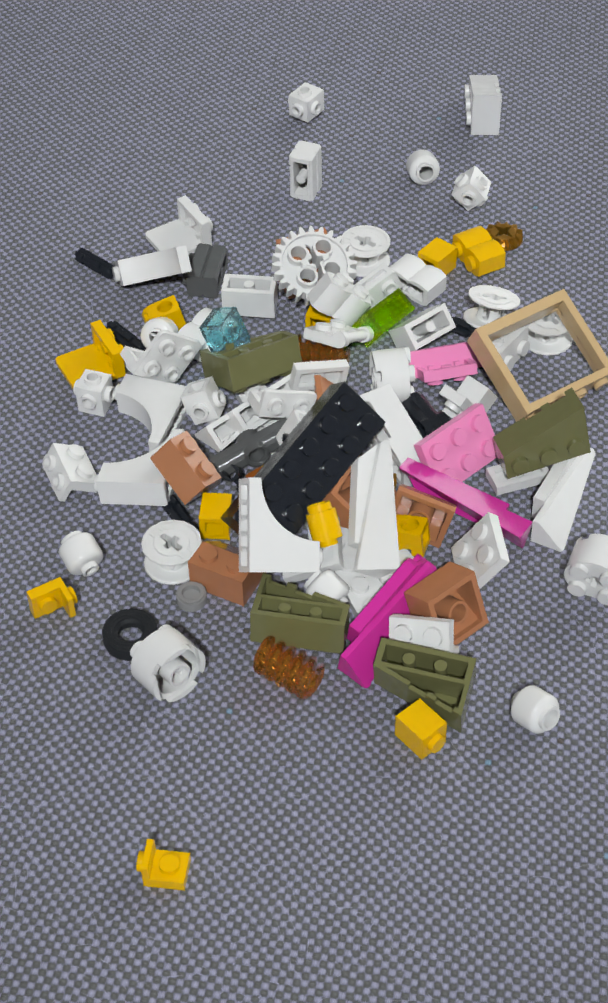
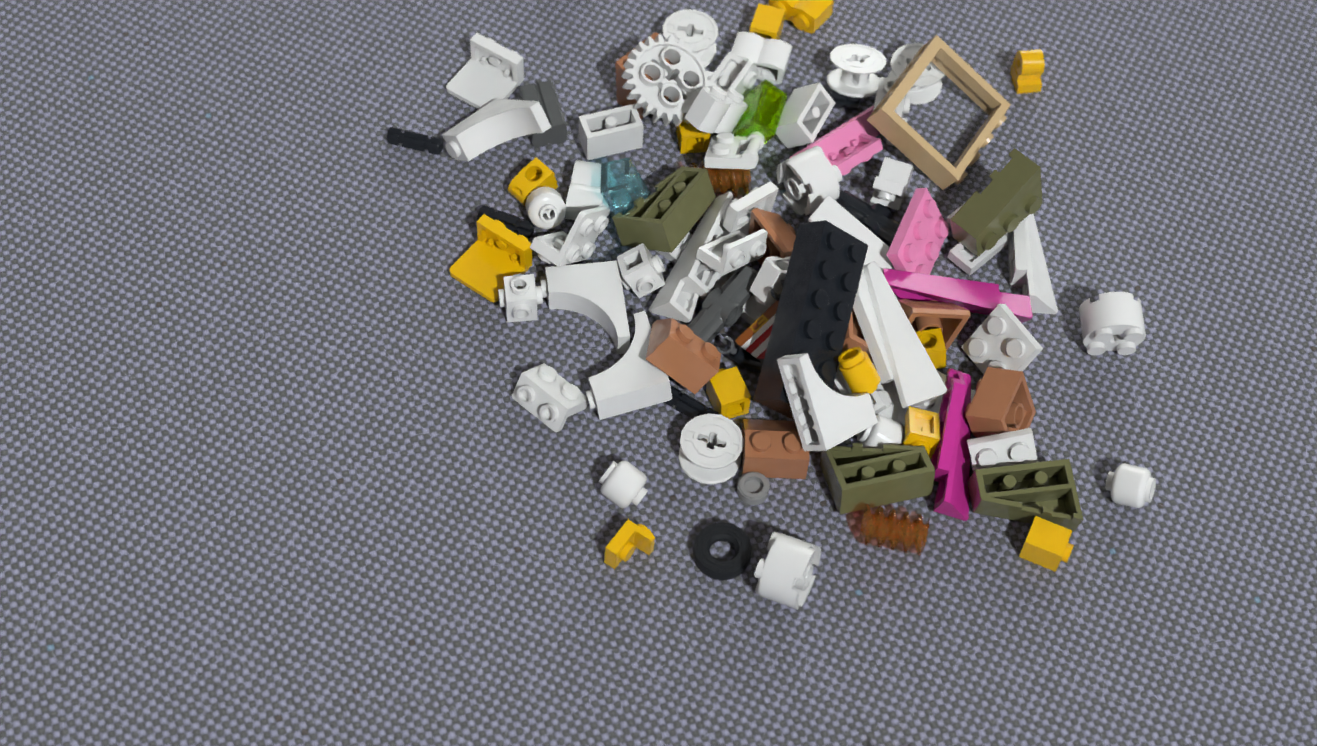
camera: 30 degrees left, 10 degrees up
(358, 593) = (922, 429): none -> yellow bracket

